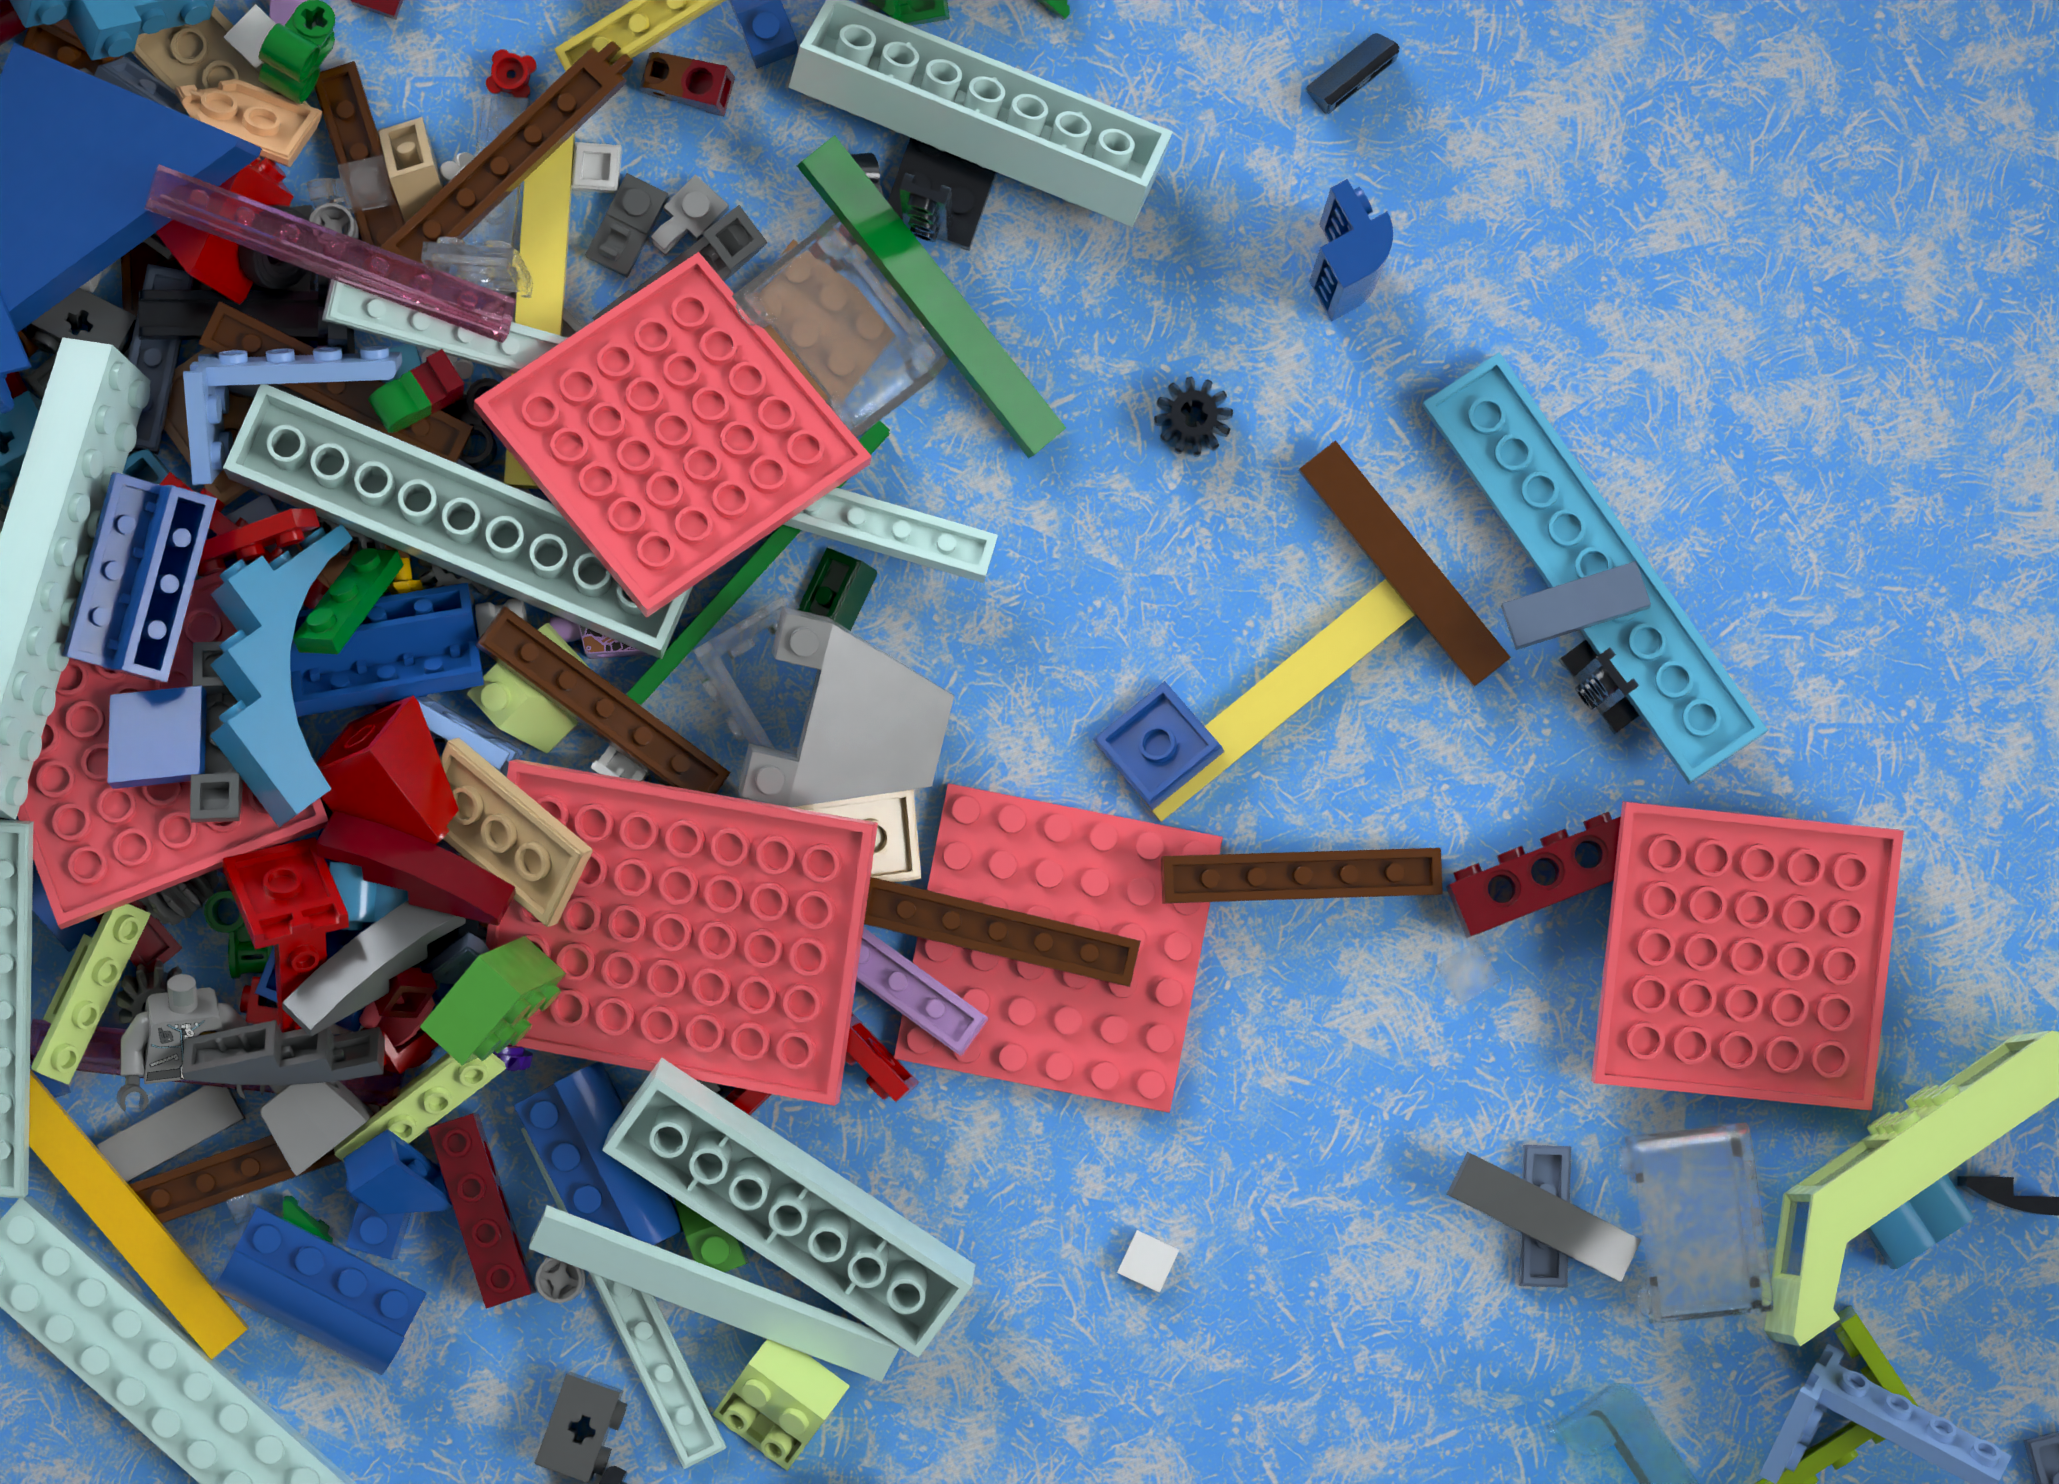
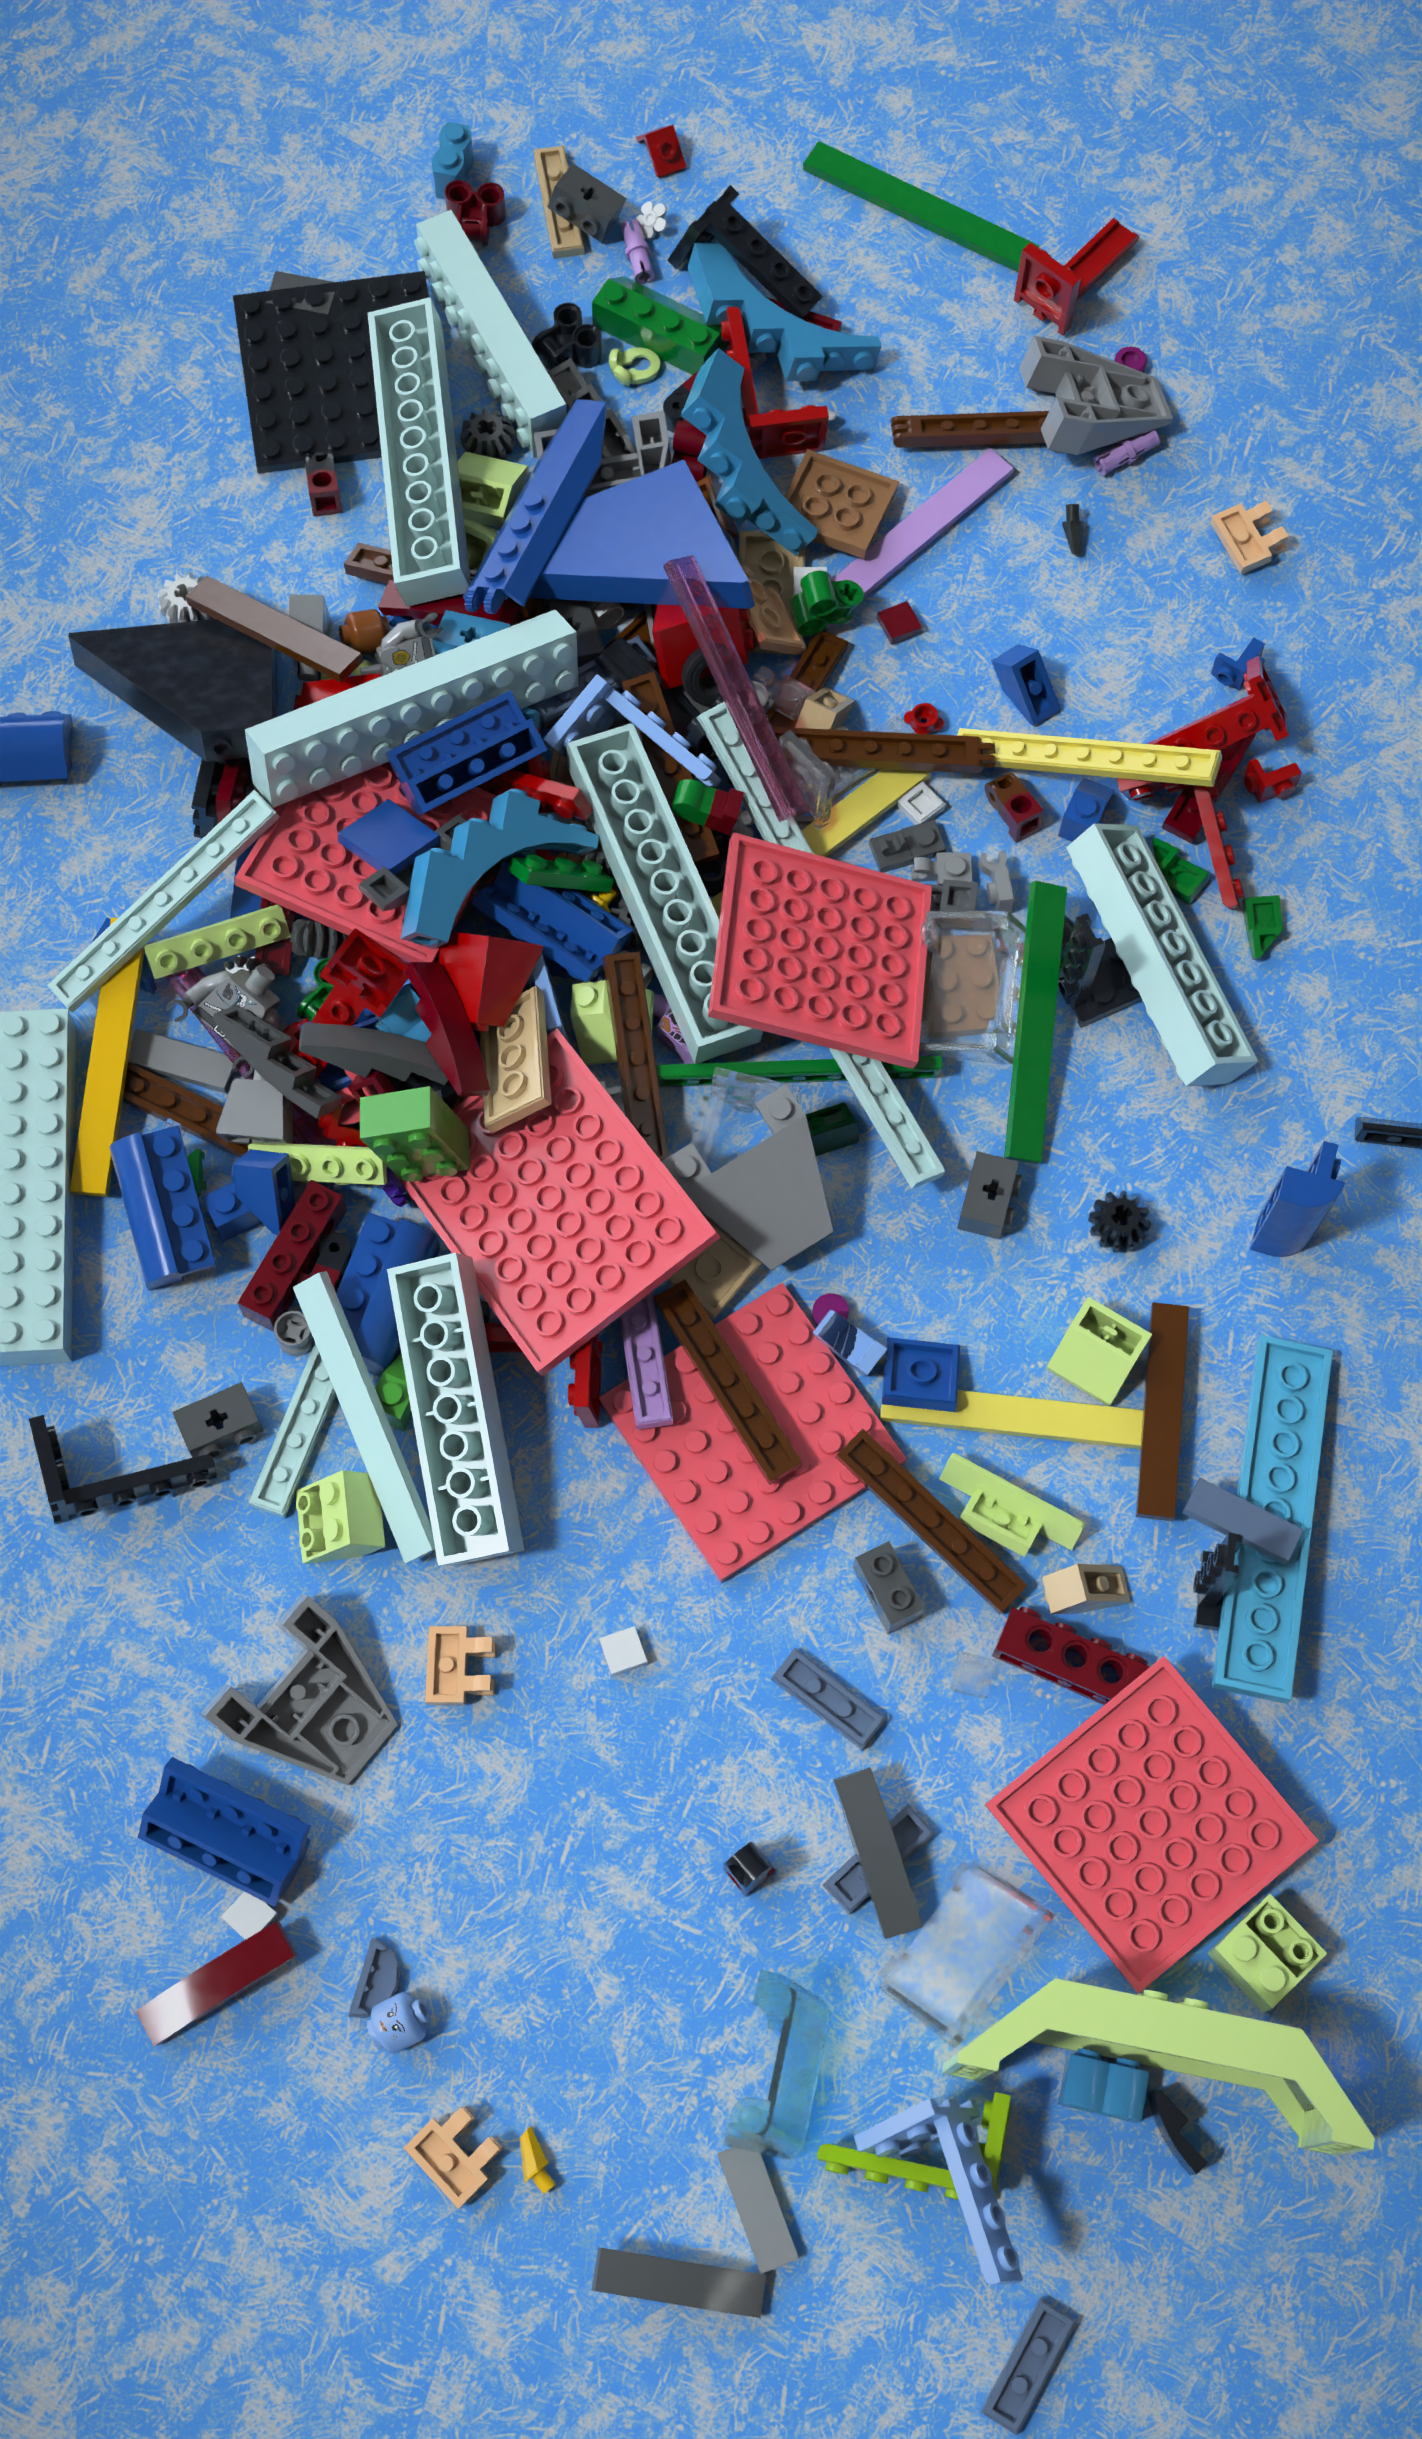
camera: 45 degrees right, 15 degrees down
(519, 1171) = (333, 1258): none -> black leg
(761, 186) = (1000, 888): none -> light grey plate
(1012, 1430) = (447, 1665): none -> light nougat plate
(1017, 766) = (829, 1302): none -> magenta tile
(1053, 537) = (994, 1176): none -> dark grey brick
(1069, 782) = (849, 1343): none -> leg
(1296, 565) = (1098, 1351): none -> yellowish green slope
(1323, 972) = (888, 1587): none -> dark grey brick
(1357, 798) = (1007, 1511): none -> yellowish green bracket
(1365, 1121) = (828, 1699): none -> sand blue tile
(1447, 1338) = (748, 1868): none -> black leg
(1493, 798) = (1085, 1588): none -> slope
(1946, 968) = (1267, 1953): none -> yellowish green slope

